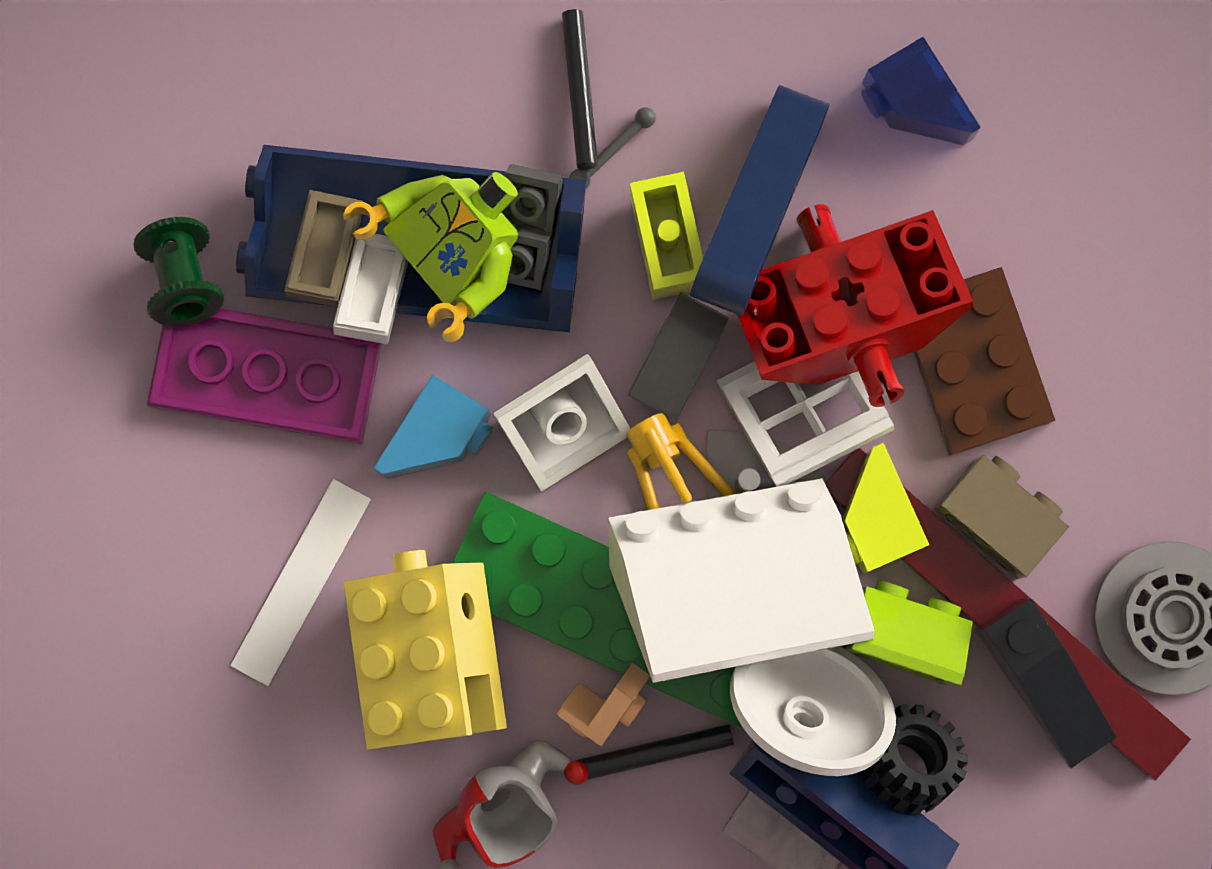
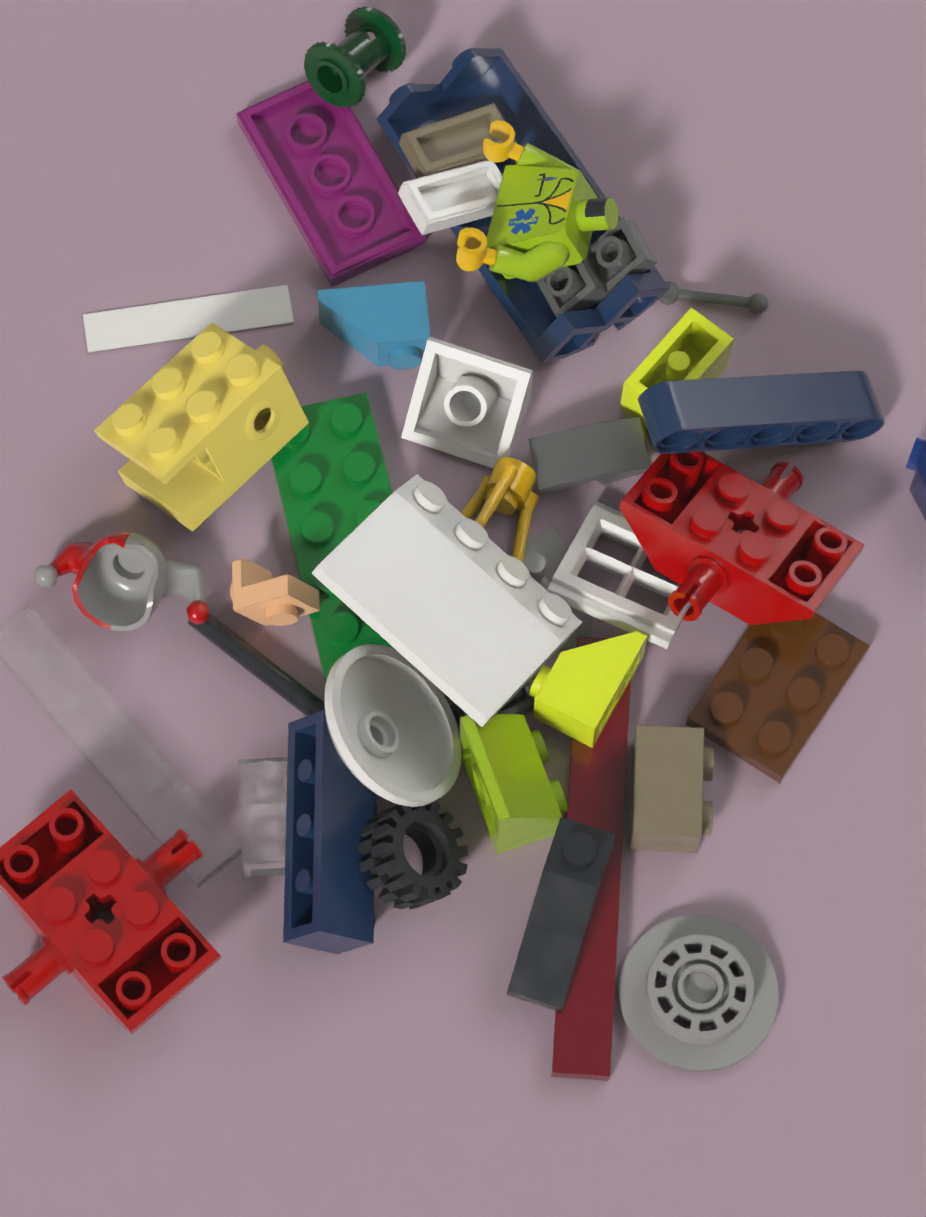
camera: 50 degrees right, 15 degrees down
(579, 89) = (737, 240): black bar -> none

